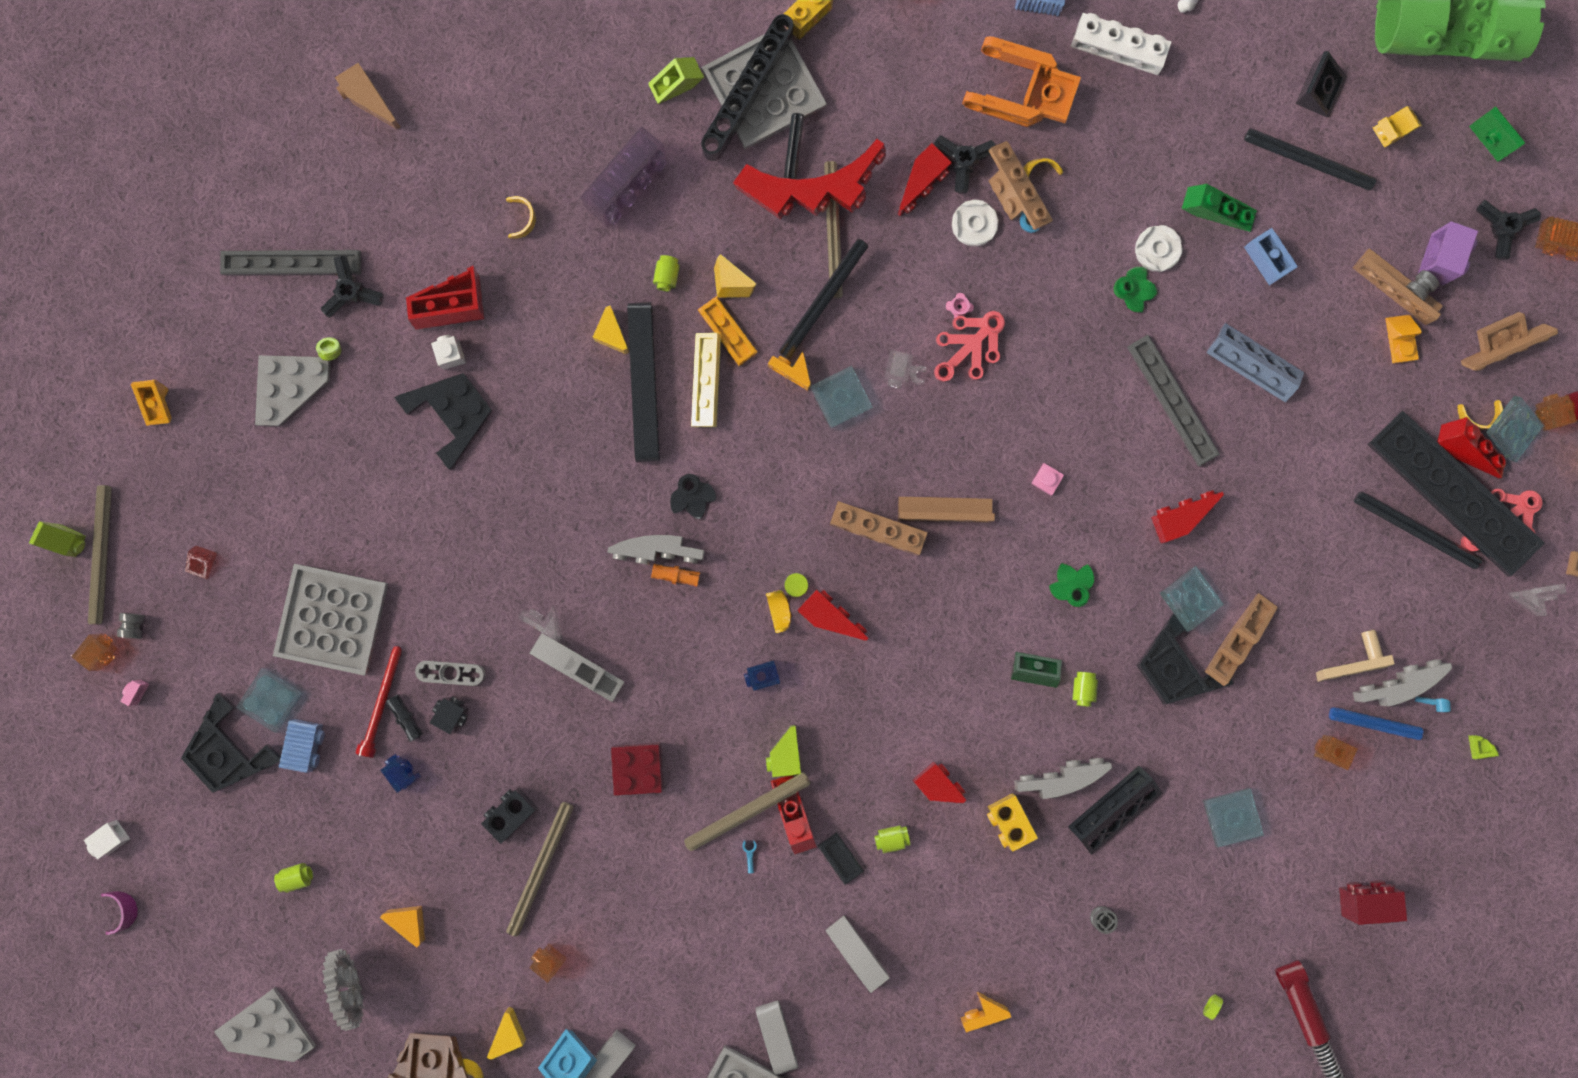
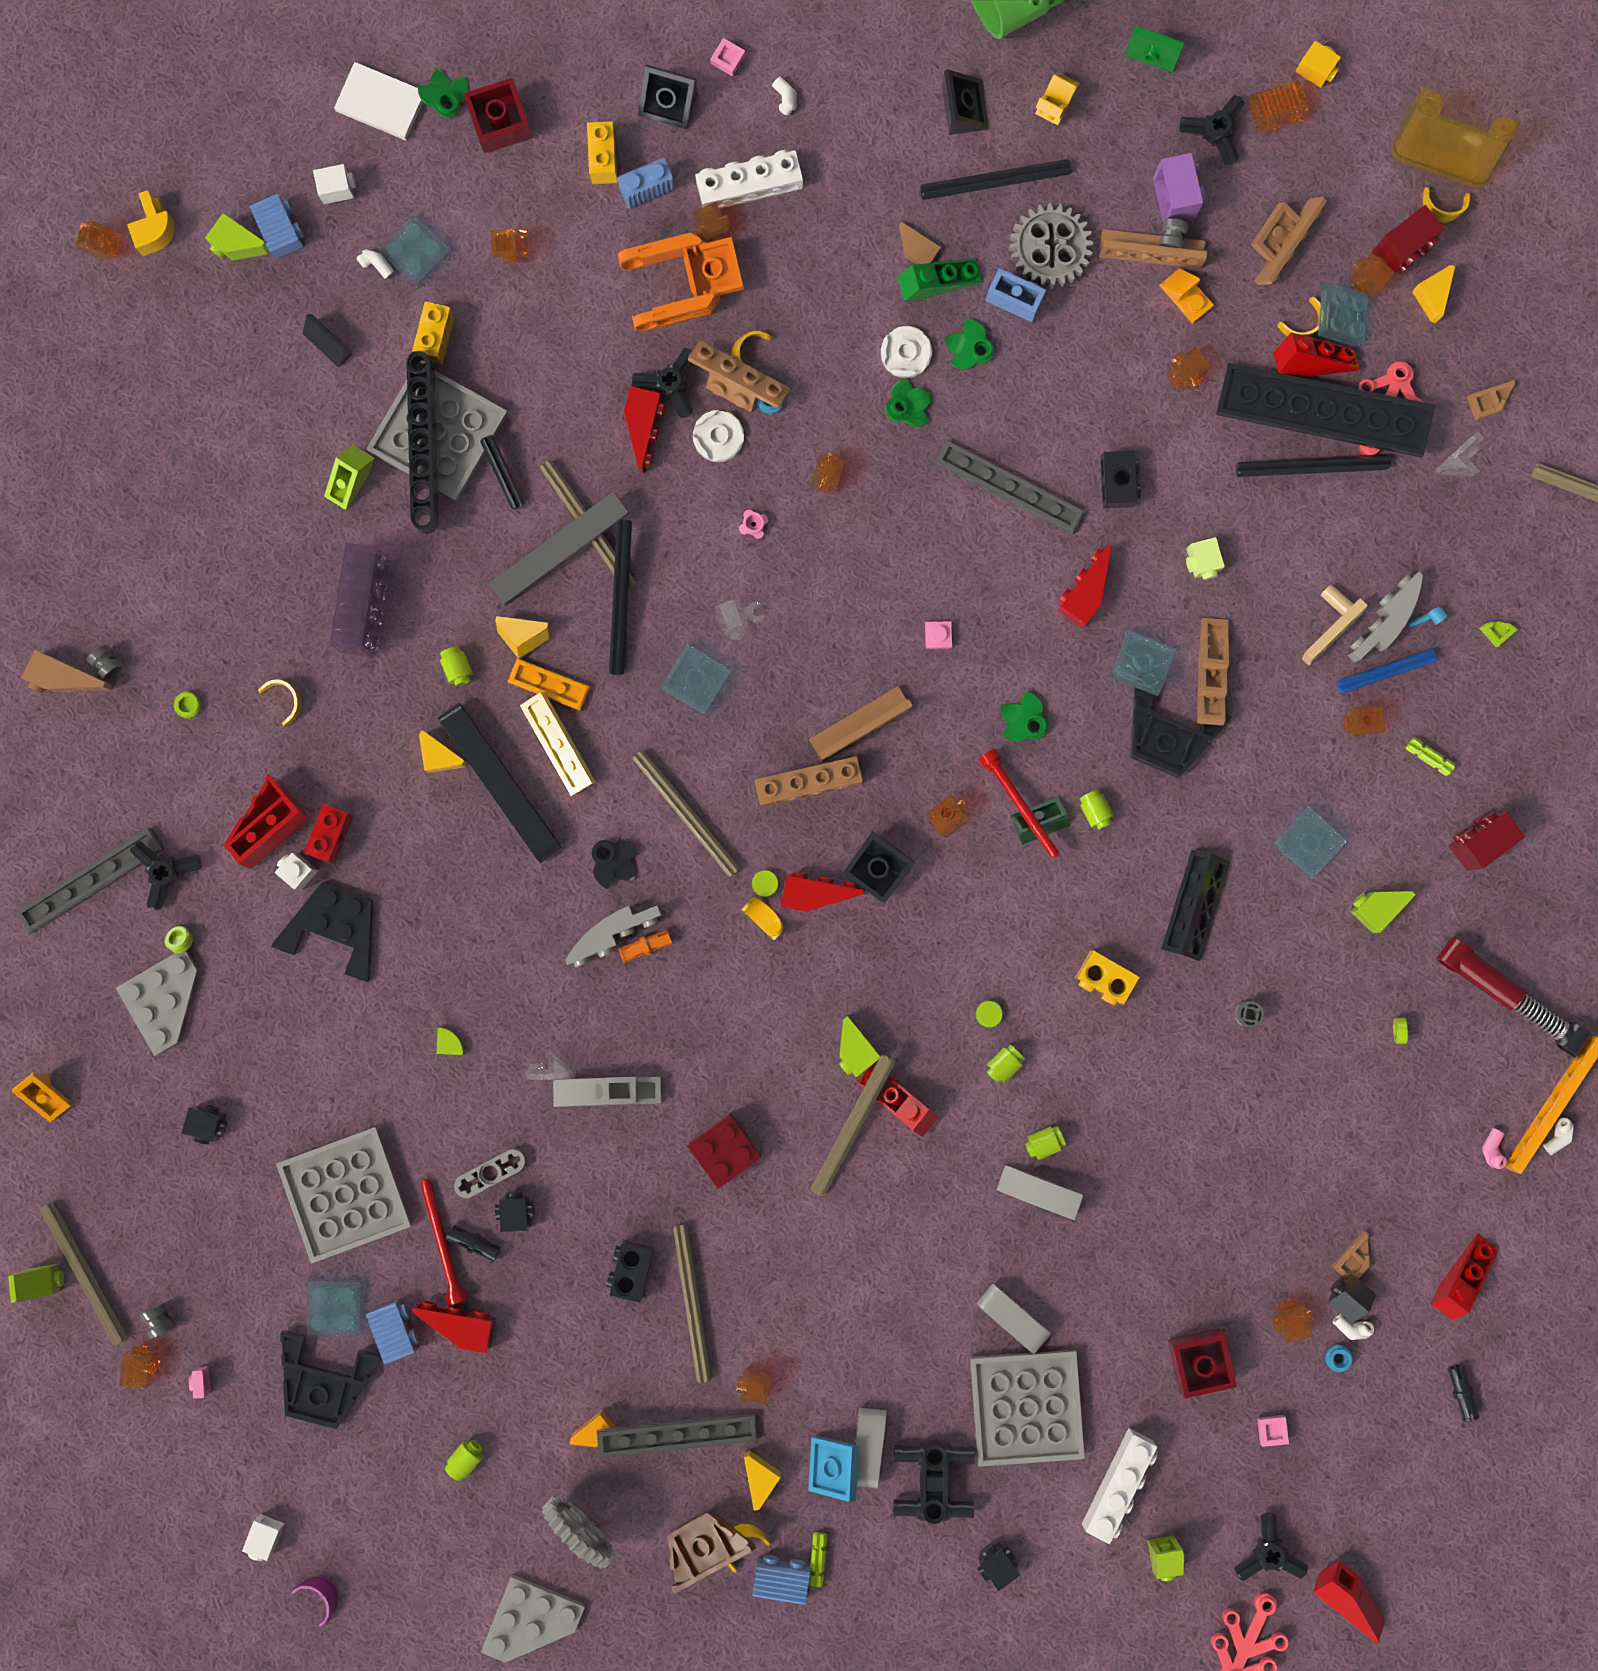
camera: 30 degrees left, 0 degrees up
(200, 561) = (184, 1219): clear red slope -> none
(260, 500) = (204, 1124): none -> black brick
(354, 777) = (461, 1328): none -> red slope
(399, 773) = (501, 1297): clear blue brick -> none
(405, 105) = (104, 661): none -> dark grey wheel
(446, 176) = (187, 705): none -> lime tile
(464, 962) = (676, 1435): none -> dark grey tile
(481, 554) = (448, 1043): none -> lime tile
(490, 339) = (328, 833): none -> red brick
(750, 854) = (882, 1165): dark azure hand -> none
(769, 494) = (686, 813): none -> dark tan axle
(769, 669) = (787, 978): clear blue brick -> none
(796, 374) = (640, 683): light orange slope -> none
(800, 232) = (559, 548): none -> dark grey tile
(813, 194) = (571, 480): red arch -> none
(840, 858) = (968, 1113): black tile -> none
(885, 918) = (1045, 1143): none -> lime brick
(890, 627) = (878, 867): none -> black slope
(904, 792) = (988, 1013): none -> lime tile
(937, 786) = (1017, 988): red slope -> none
(961, 621) = (940, 816): none -> clear orange brick
(972, 343) = (787, 552): coral plant -> none
(991, 1013) = (1199, 1167): light orange slope -> none
(1027, 602) = (992, 762): none -> red piece
(1041, 303) = (828, 472): none -> clear orange brick
(1071, 58) = (711, 223): none -> clear orange brick
(1072, 778) = (1137, 901): light grey slope -> none
(1207, 271) = (966, 343): none -> green plate
(1217, 172) = (916, 246): none -> medium nougat tile
(1250, 455) = (1114, 494): none -> black brick
(1255, 364) = (1064, 406): sand blue fence -> none
(1256, 903) = (1379, 908): none -> lime slope
(1289, 549) = (1204, 559): none -> yellowish green brick
(1303, 225) = (1074, 245): none -> light grey gear
(1368, 396) = (1188, 369): none -> clear orange brick
(1368, 810) = (1430, 756): none -> lime axle

